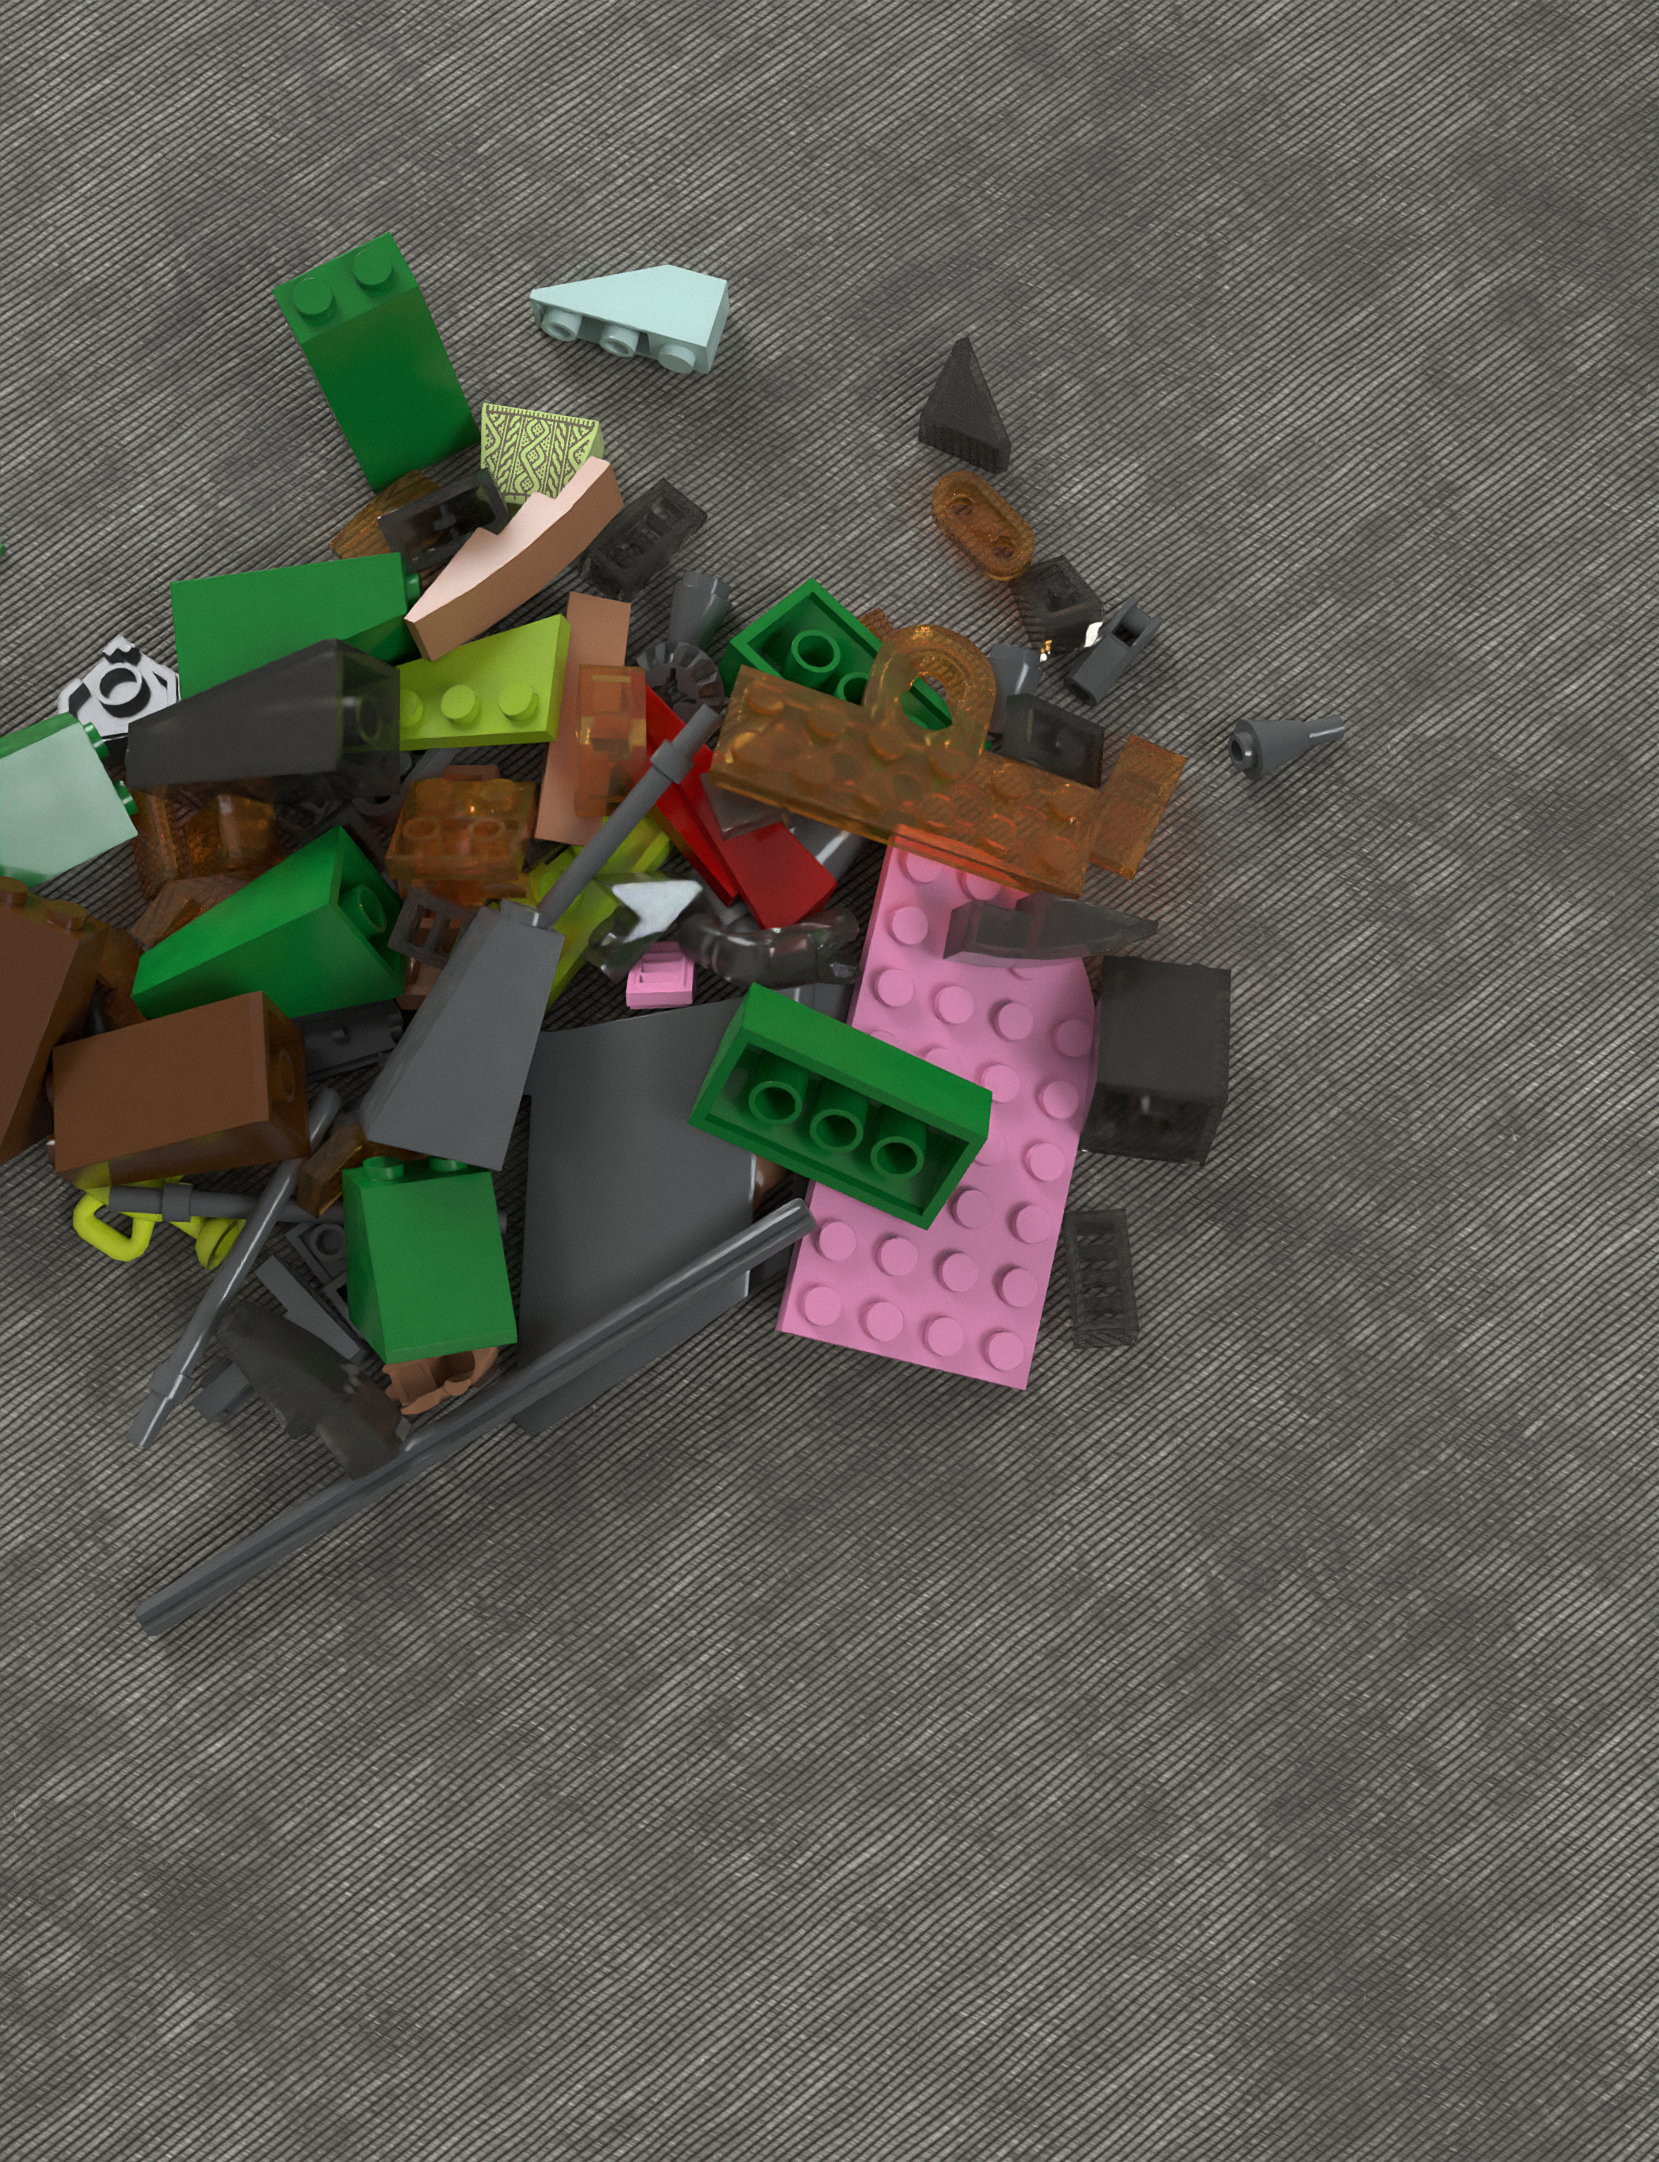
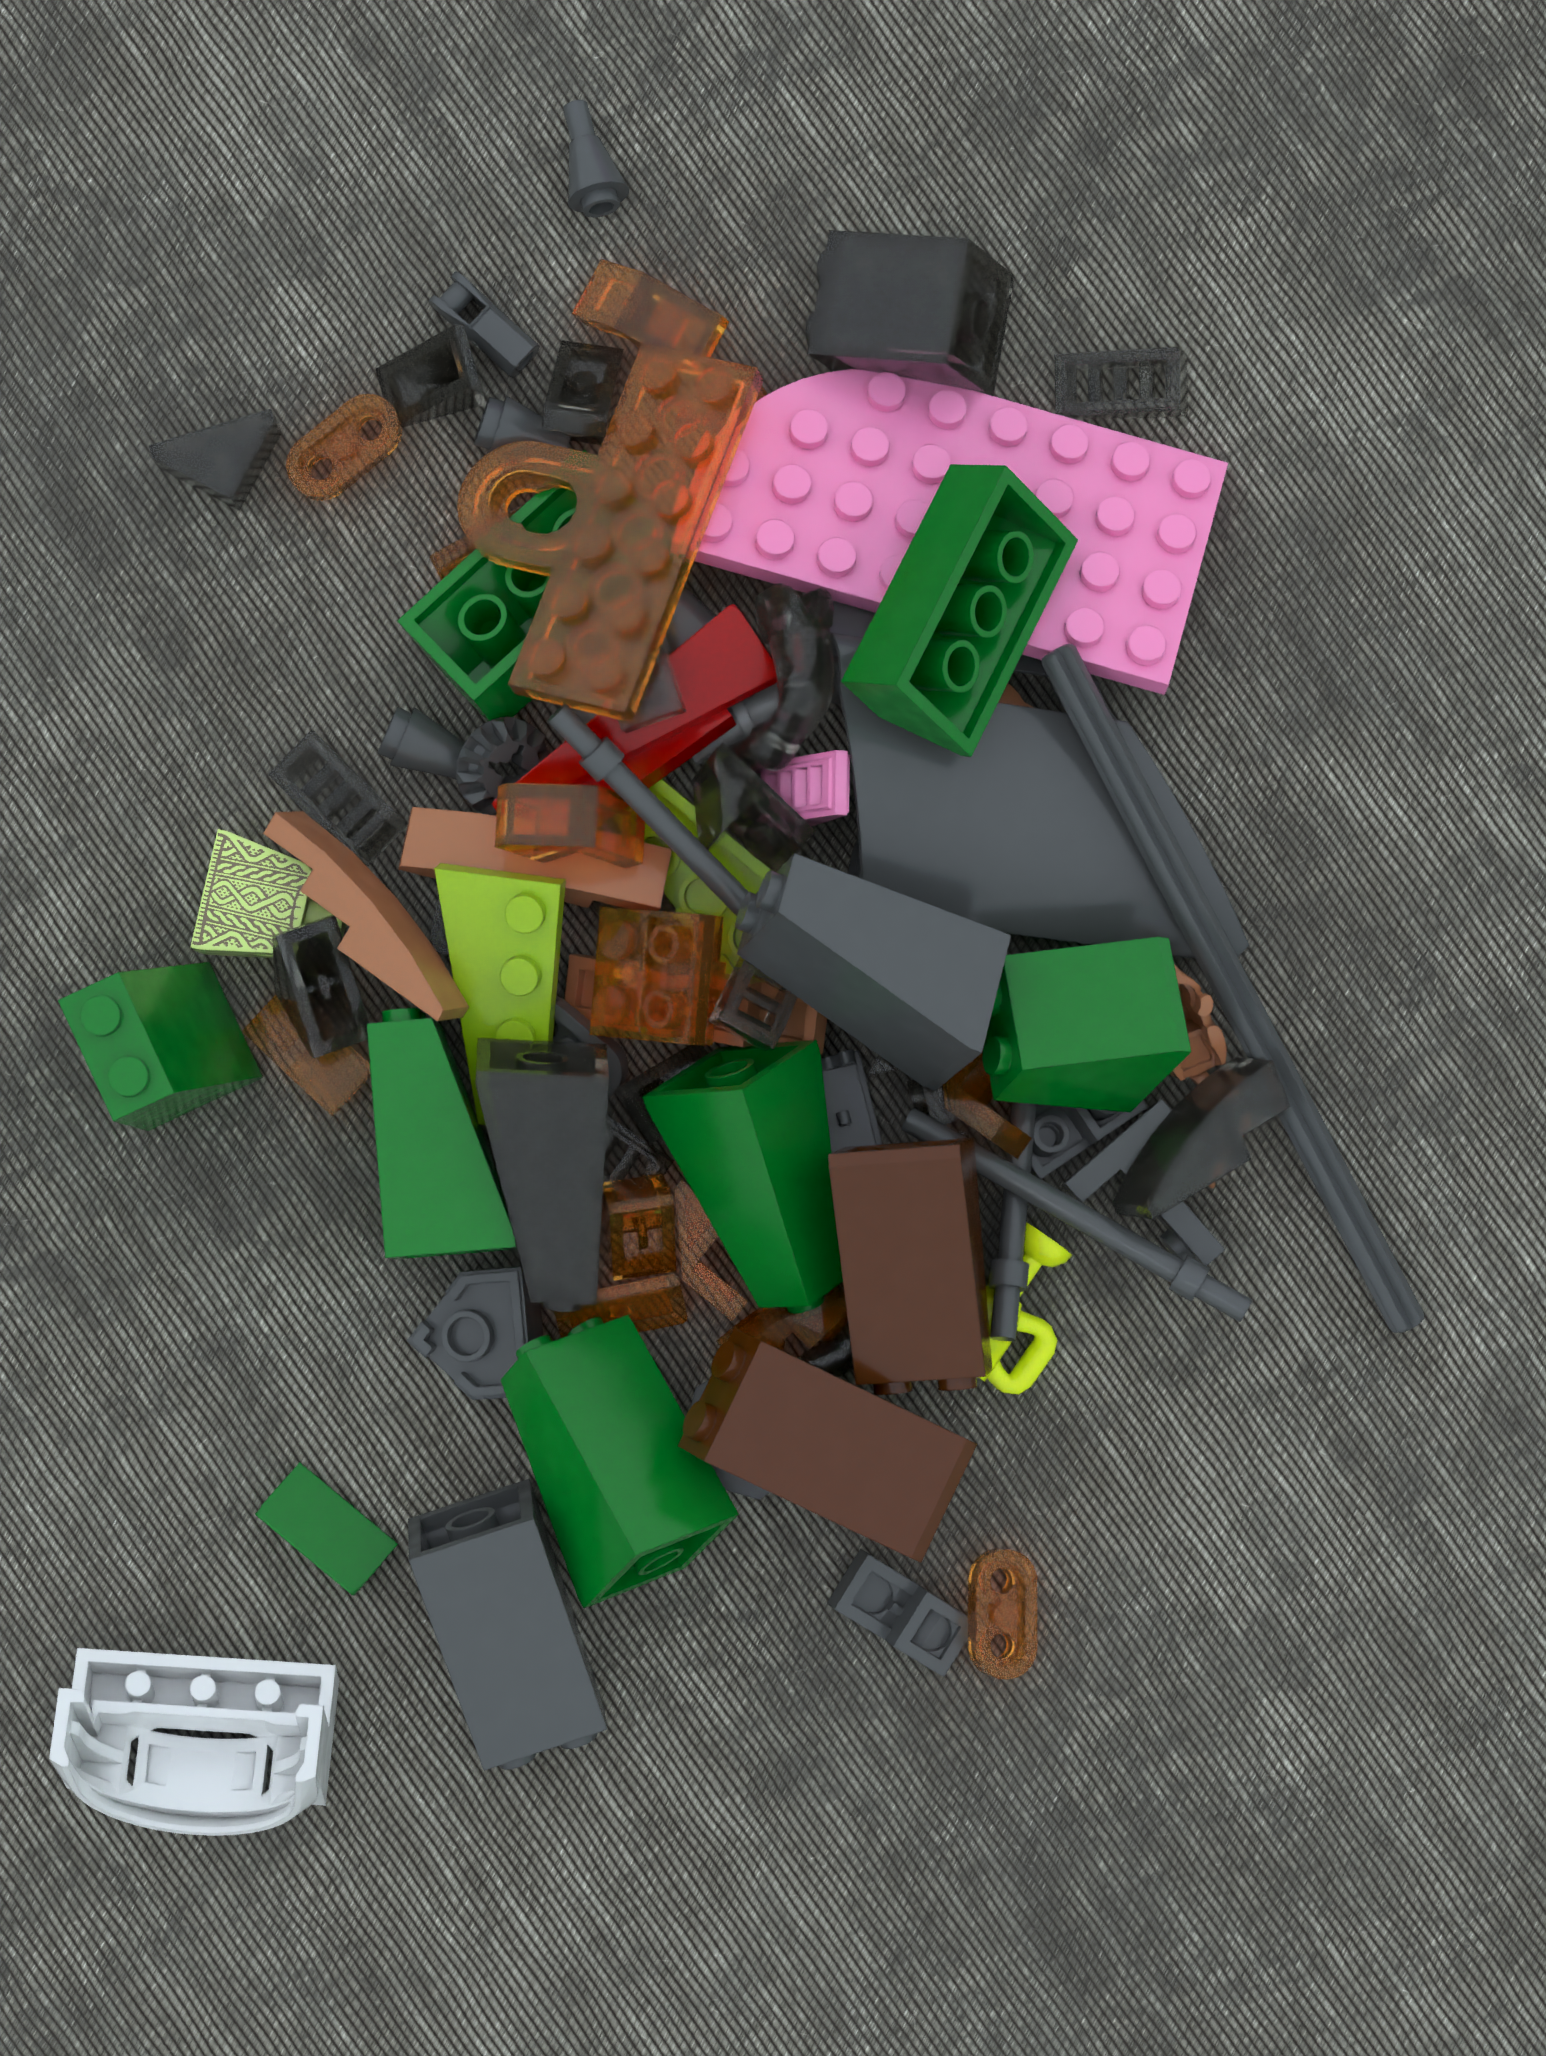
camera: 85 degrees left, 5 degrees up
(642, 312) = (92, 771): light aqua slope -> none
(1039, 932) = (791, 409): clear smoke slope -> none

